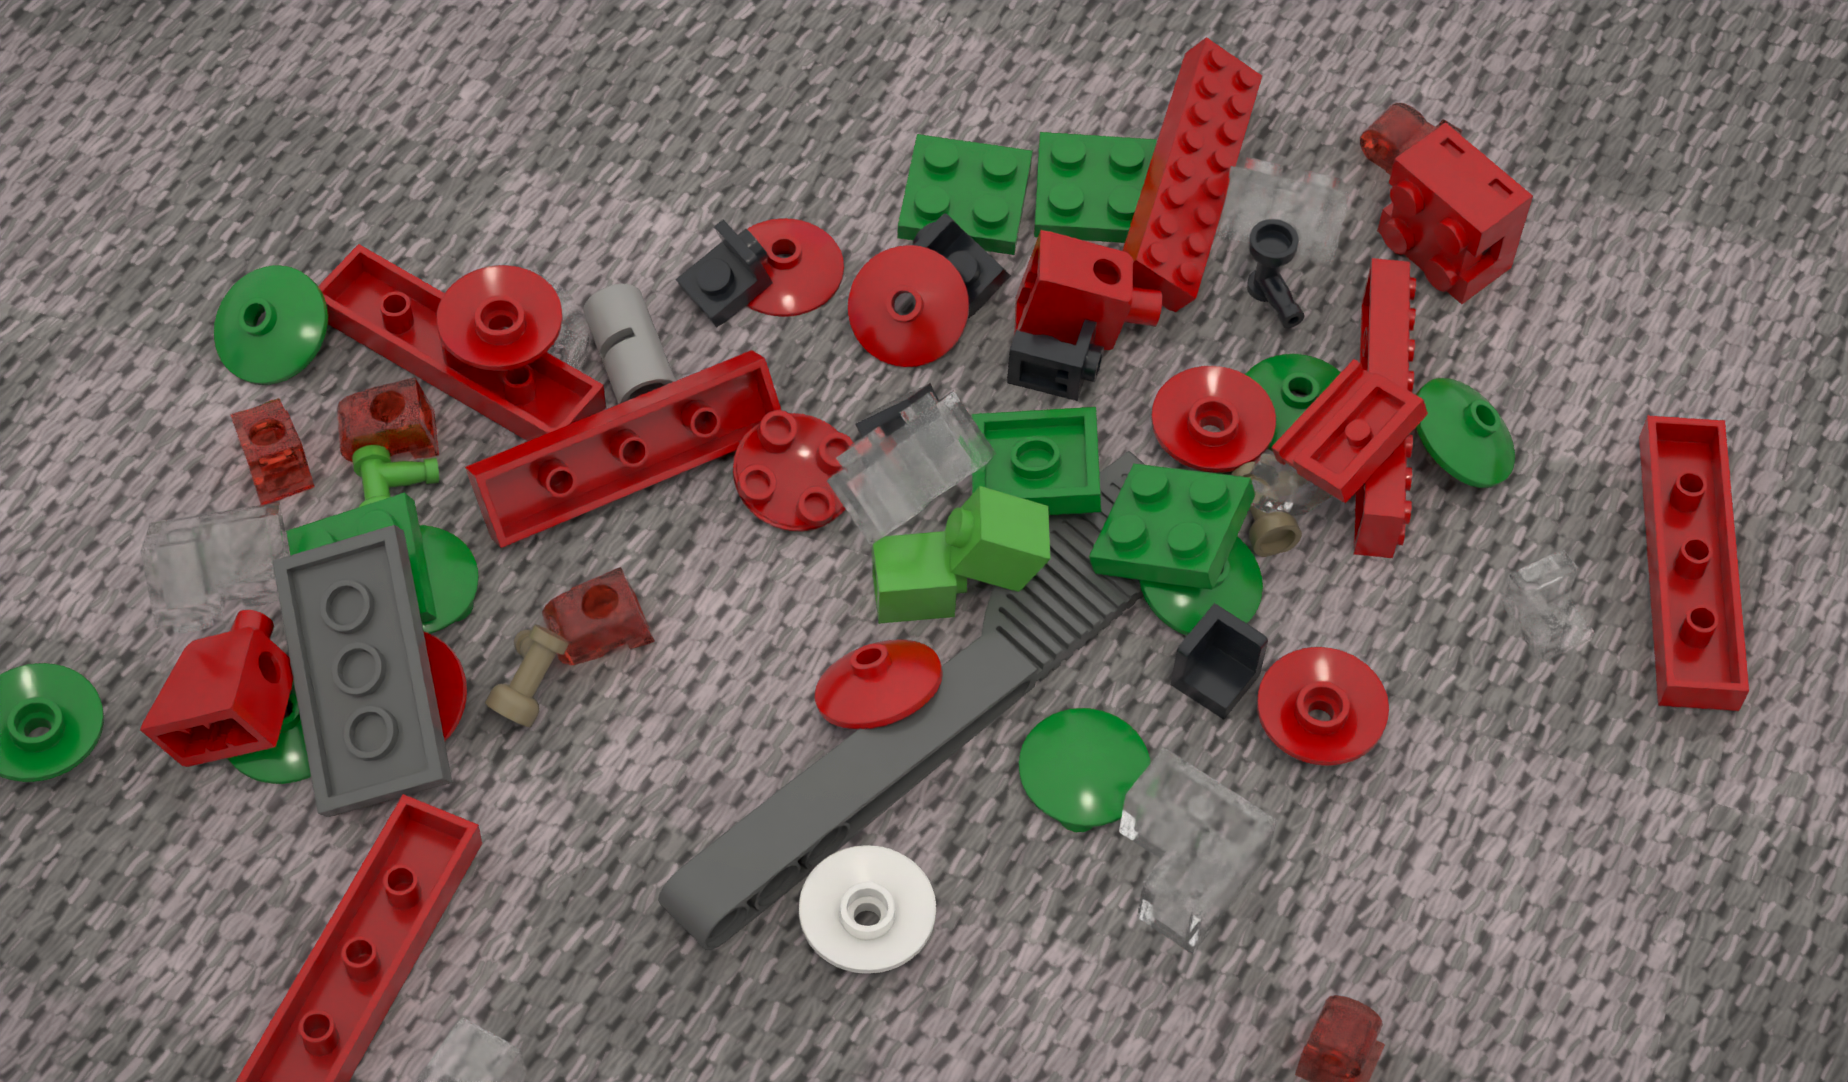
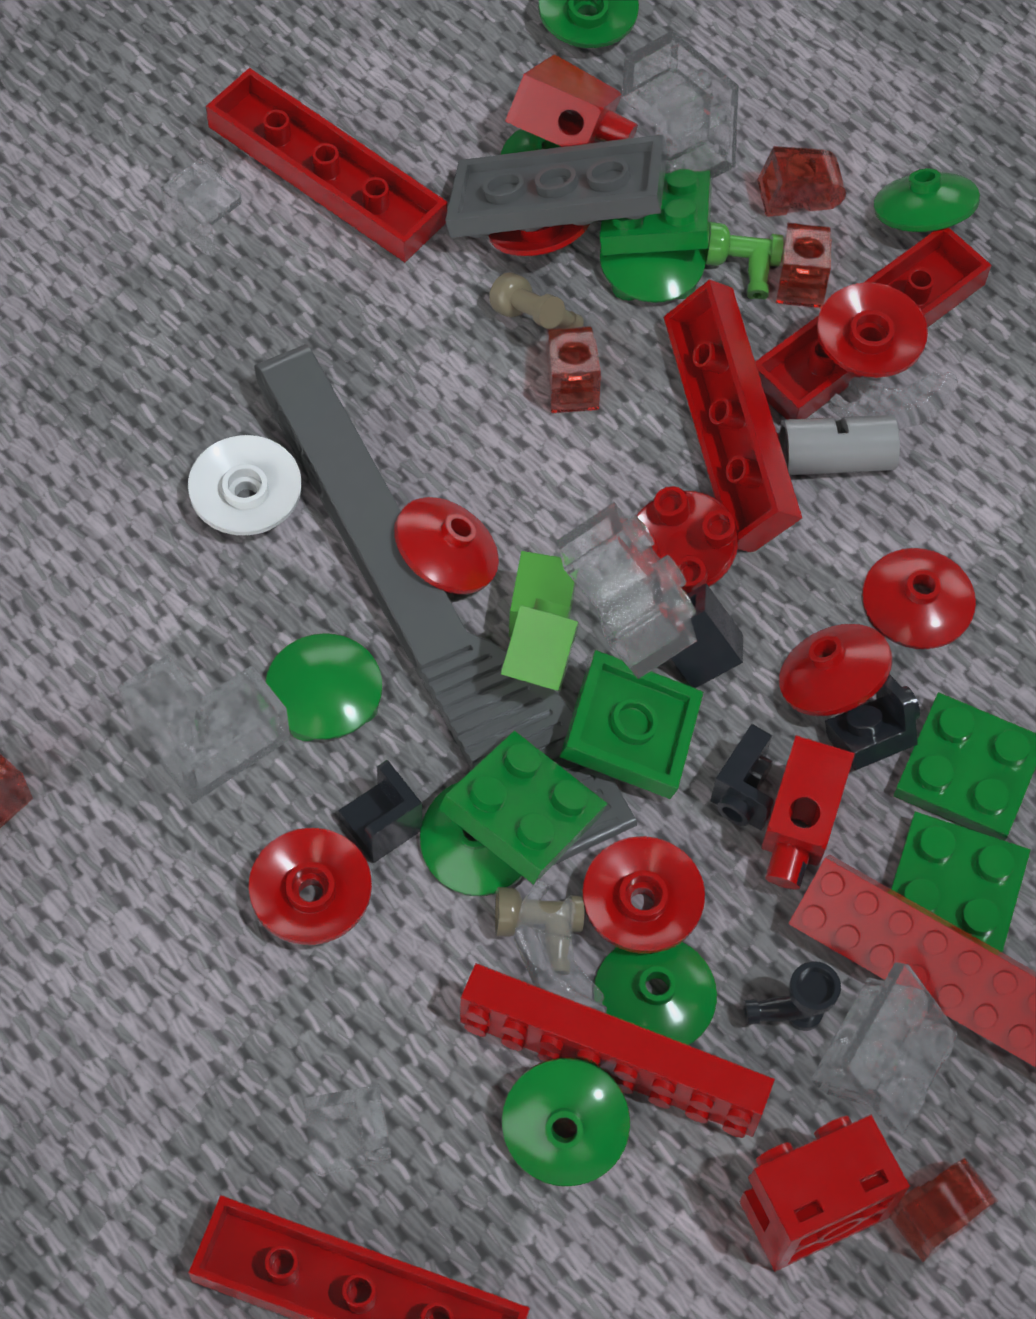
camera: 105 degrees right, 5 degrees up
(727, 275) = (906, 536): black bracket -> none
(1350, 430) = (561, 969): red plate -> none

